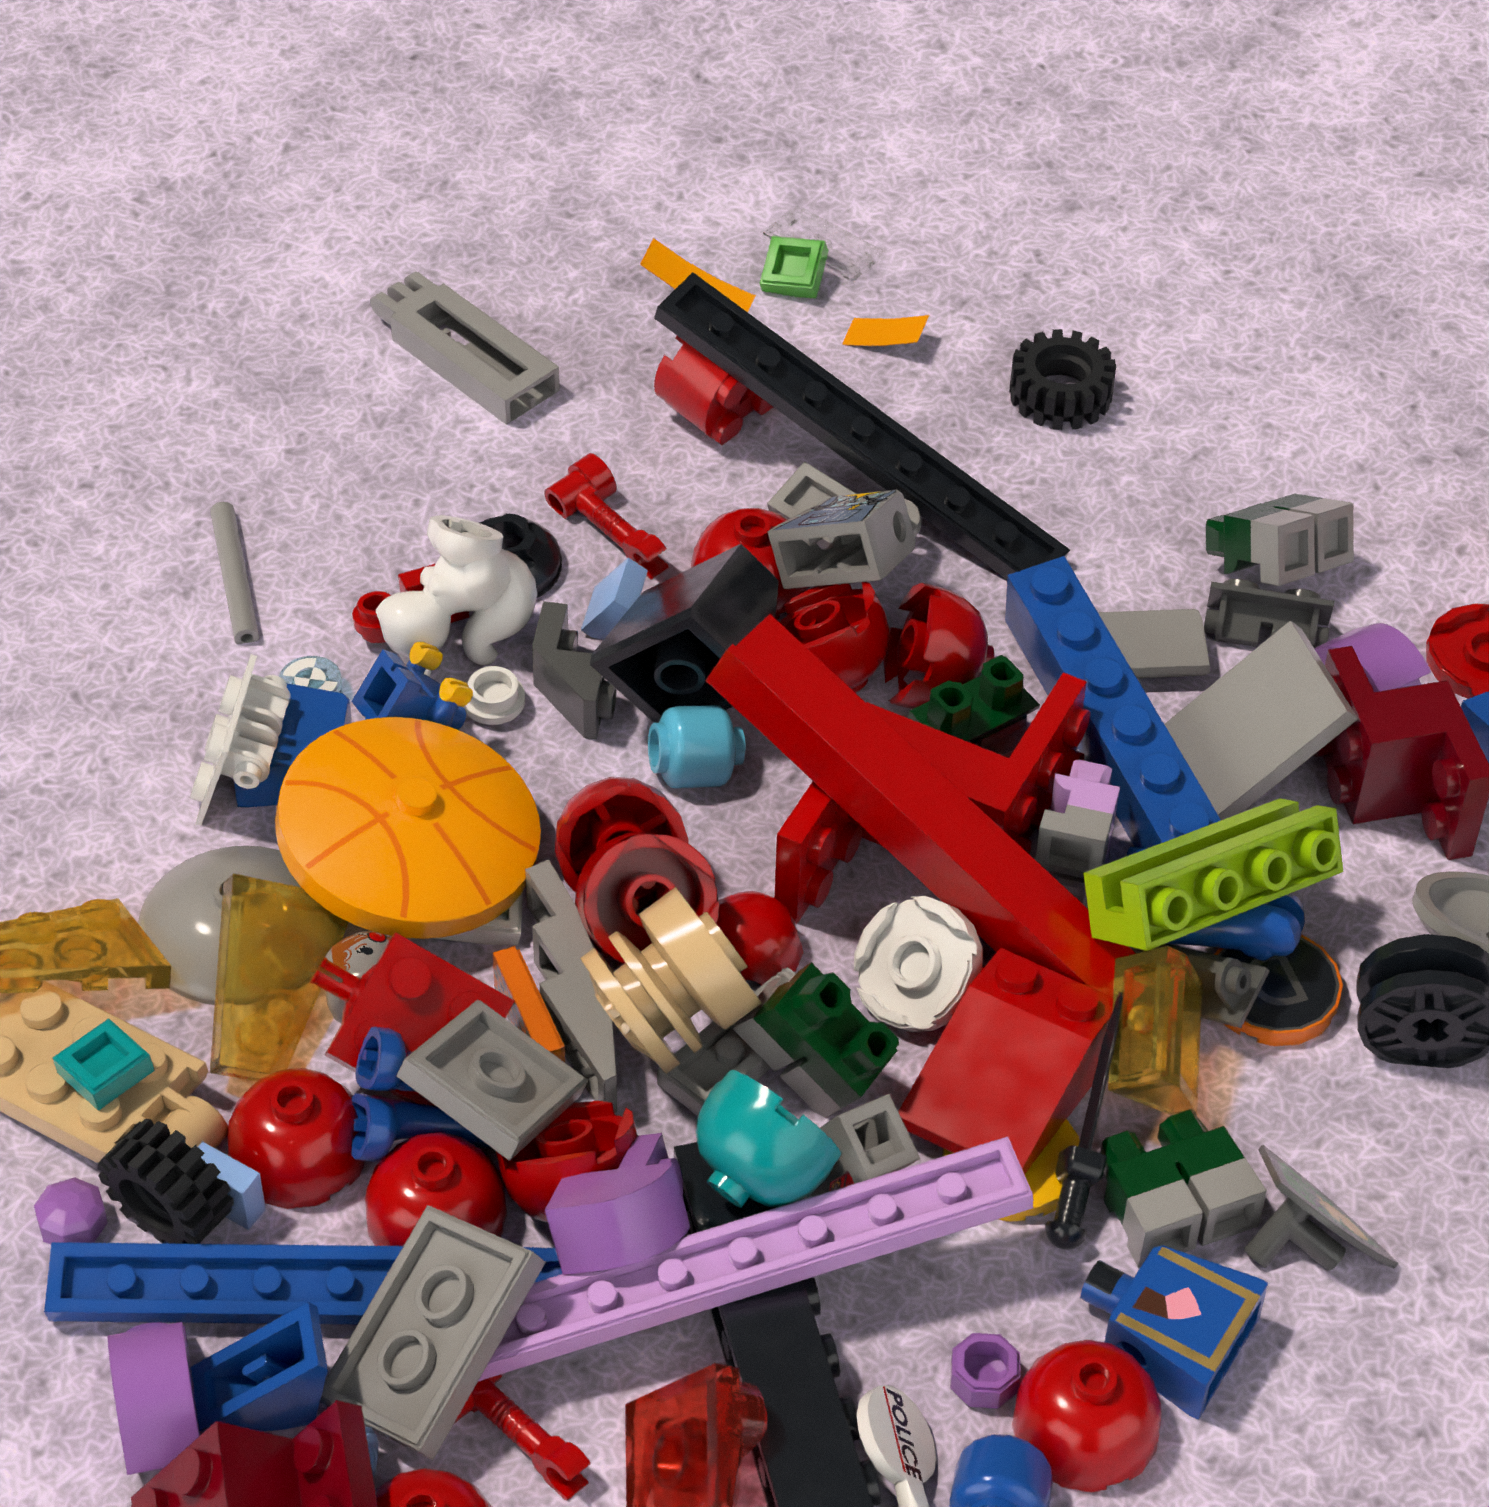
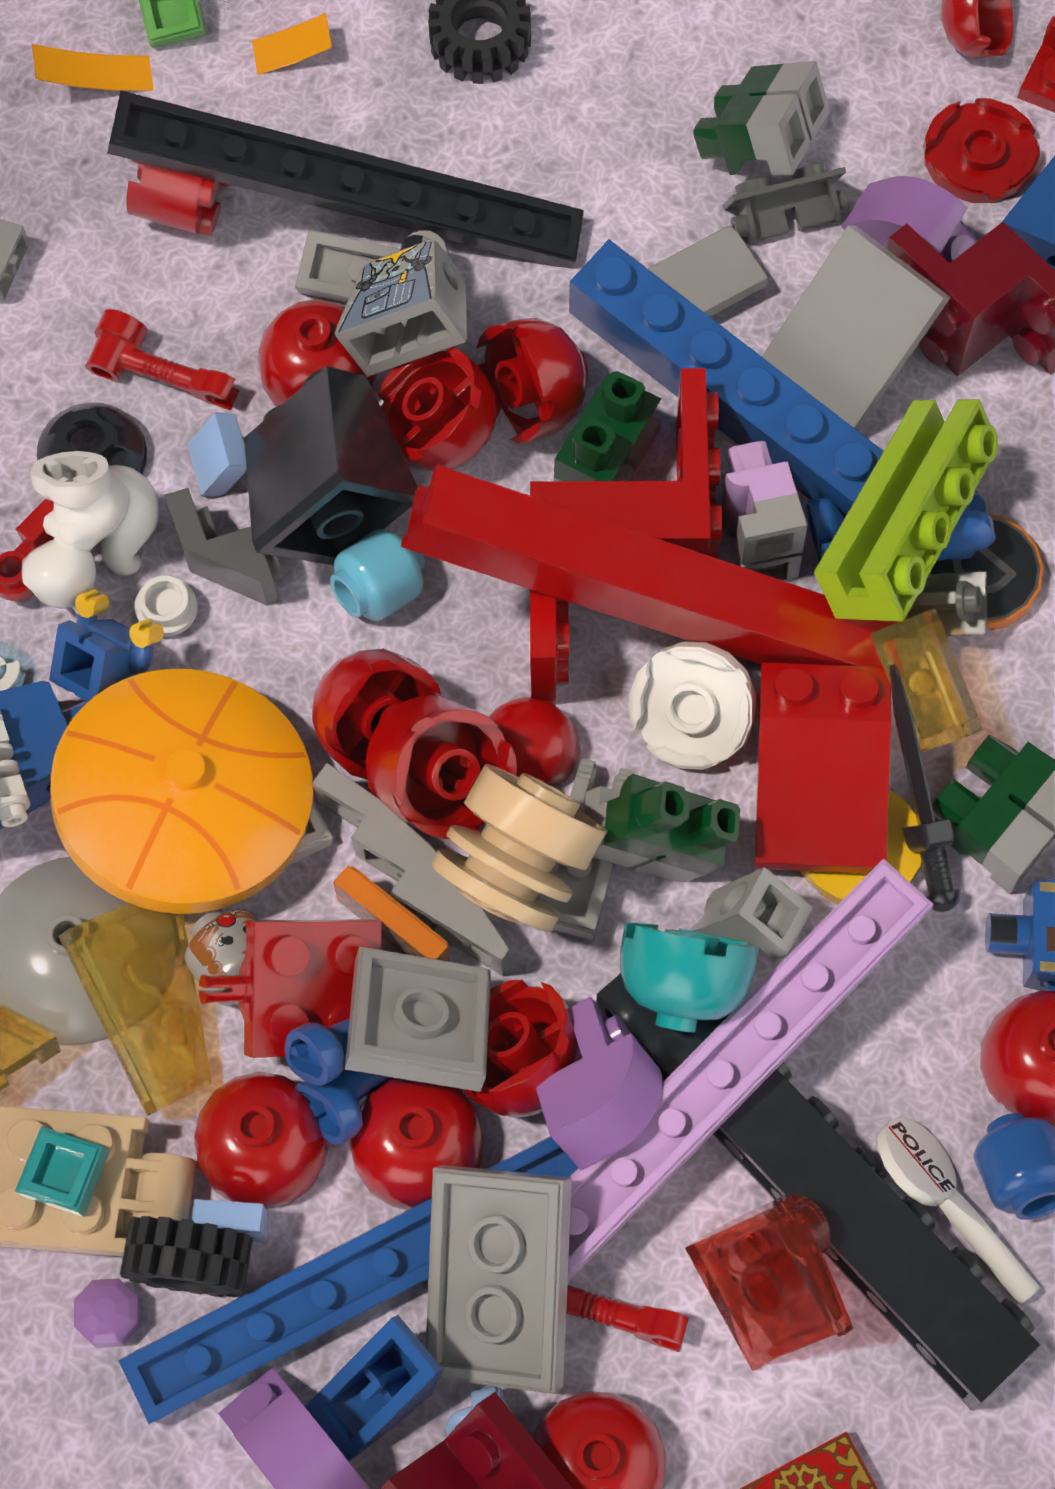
camera: 25 degrees left, 20 degrees up
(985, 1370) = (947, 1058): medium lavender tile -> none

